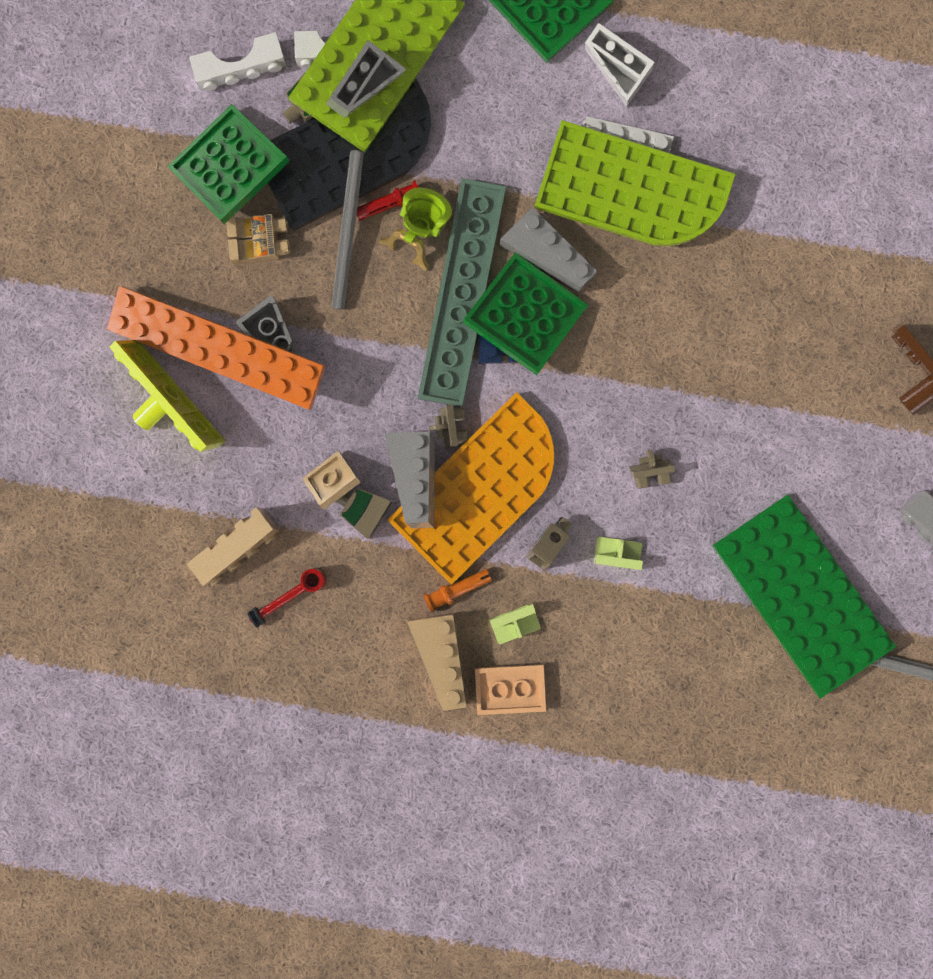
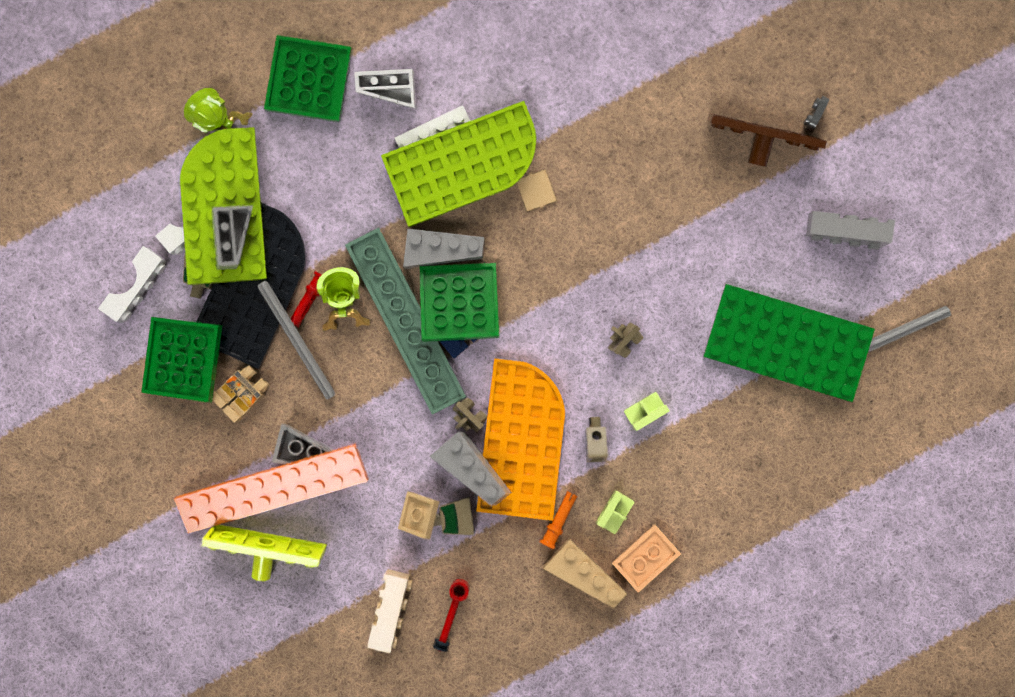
camera: 35 degrees left, 0 degrees up
(678, 269) = (536, 190): none -> tan piece

